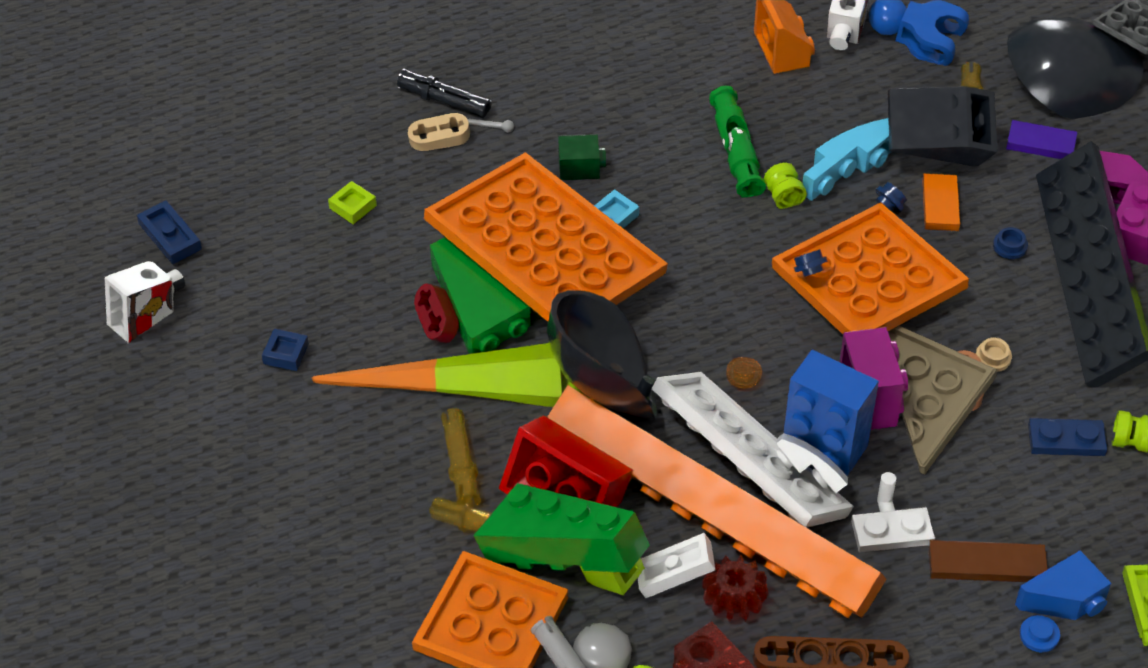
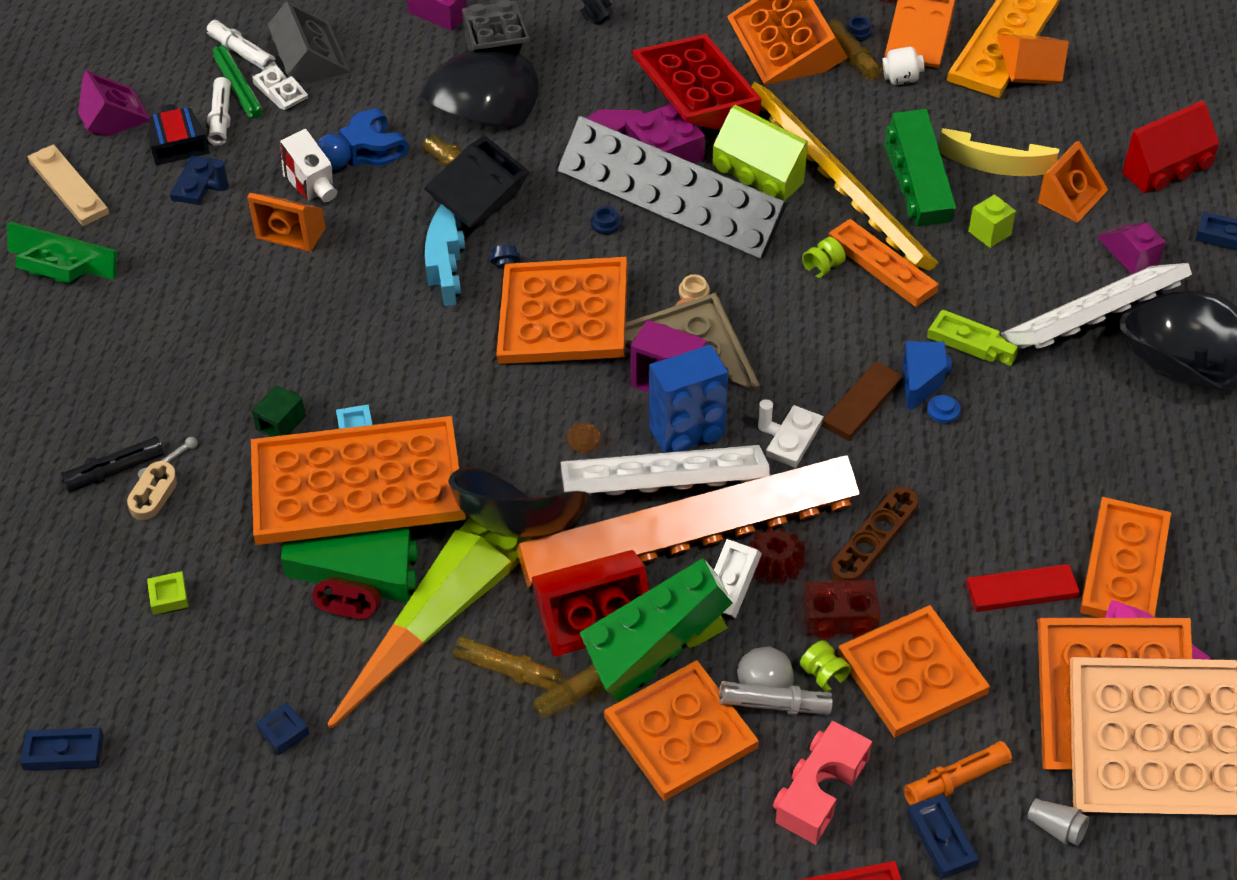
camera: 55 degrees left, 0 degrees up
(140, 298) = (126, 792): torso -> none
(737, 142) = (358, 308): green piece -> none
(785, 186) = (433, 307): lime wheel -> none
(801, 455) = (712, 441): white slope -> none
(810, 263) = (532, 332): dark blue plate -> none
(941, 202) = (531, 234): orange tile -> none
(1041, 140) = (533, 146): dark purple tile -> none
(1067, 437) = (795, 295): dark blue plate -> none

